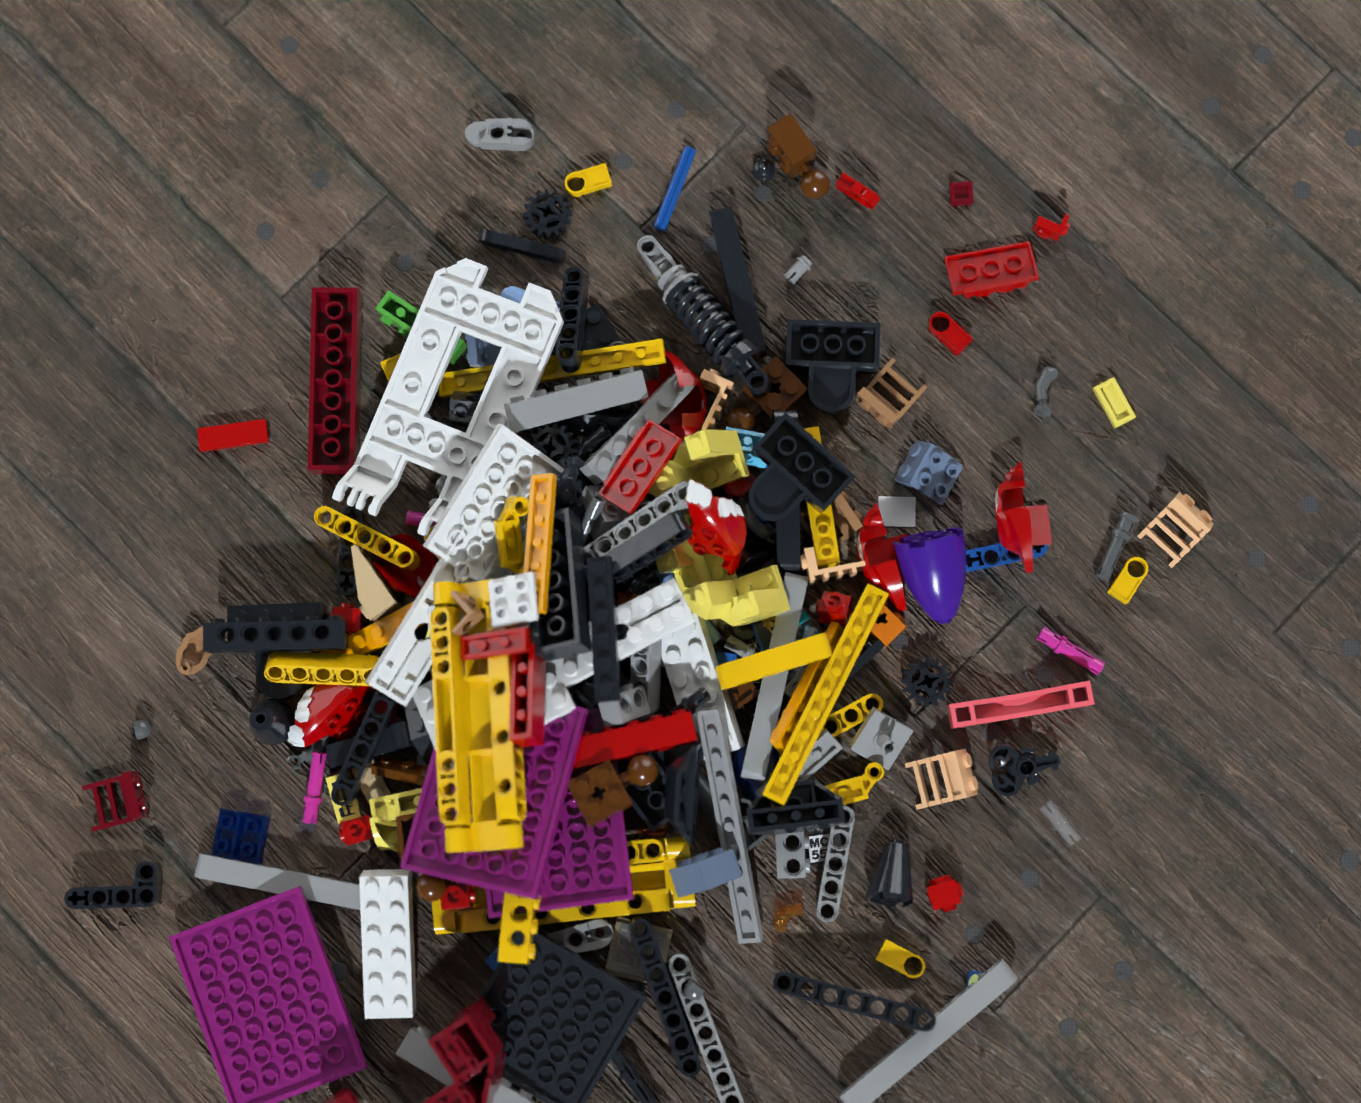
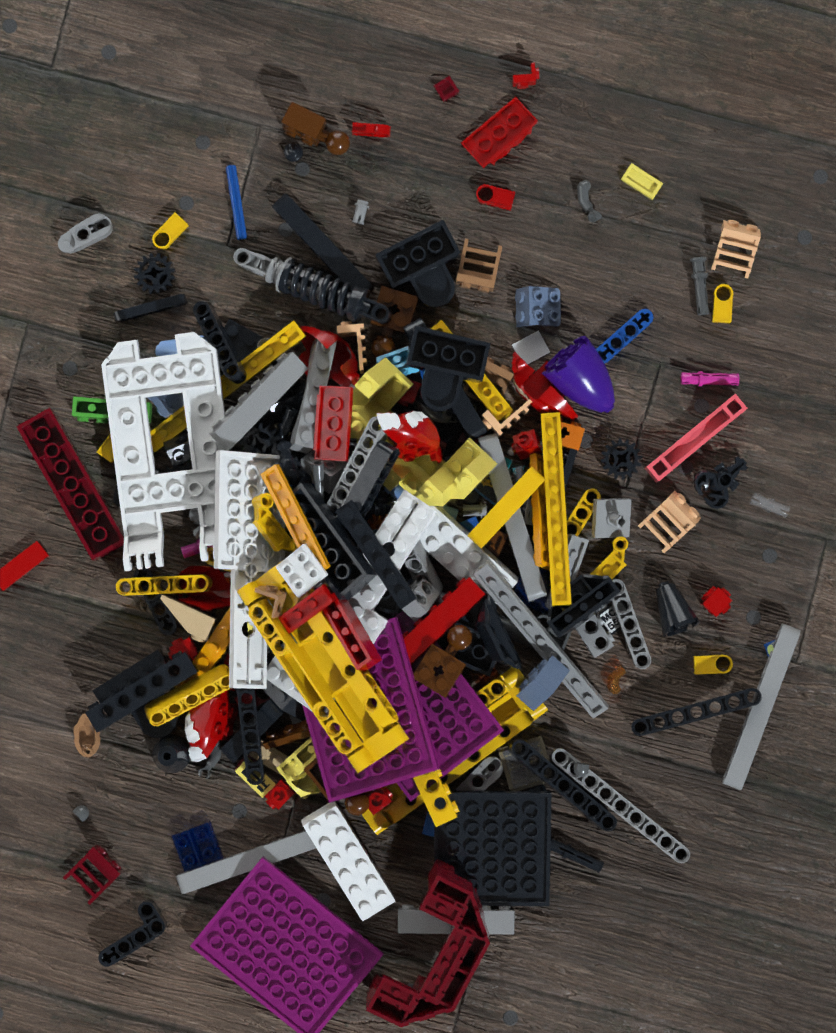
camera: 40 degrees left, 5 degrees up
(313, 796) = (230, 782): dark pink pin -> none
(693, 701) = (465, 570): black axle -> none
(1018, 524) = (622, 308): red animal -> none

